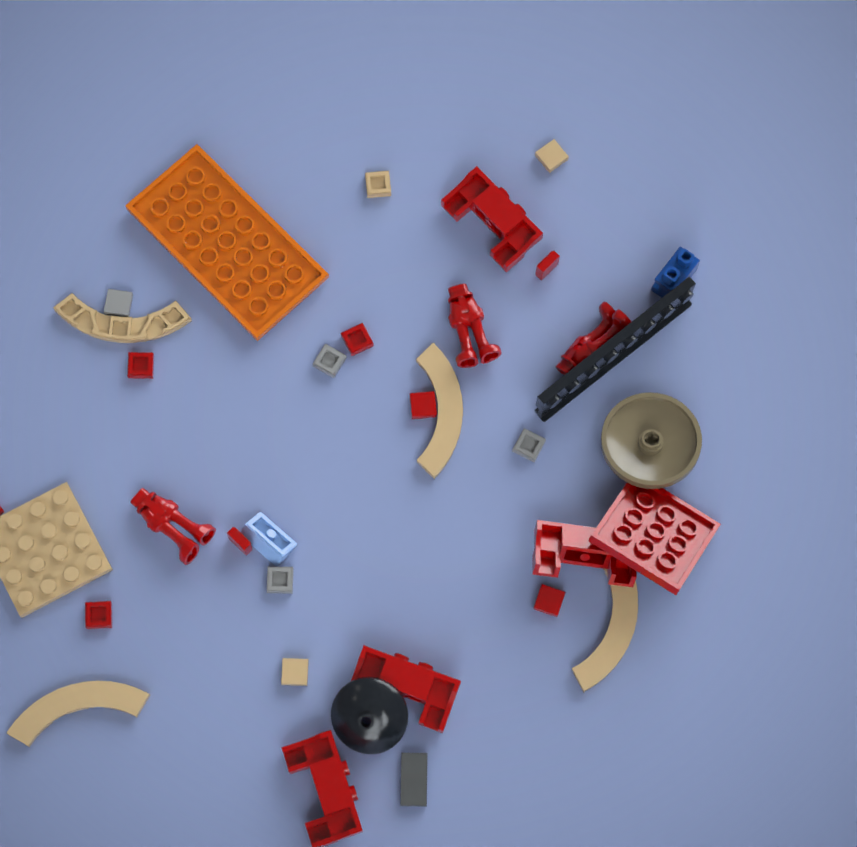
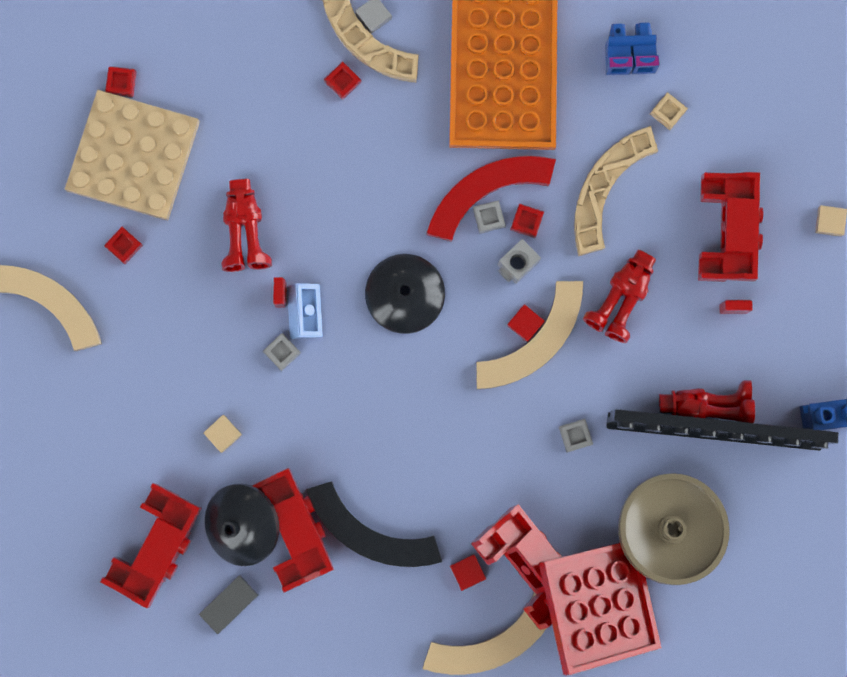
camera: 45 degrees right, 10 degrees up
(303, 341) = (484, 182): none -> red tile
(316, 169) = (631, 52): none -> blue hips
(328, 478) = (409, 312): none -> black dish
(378, 359) = (523, 251): none -> light grey brick
(379, 271) = (598, 185): none -> tan tile
(463, 646) = (365, 540): none -> black tile

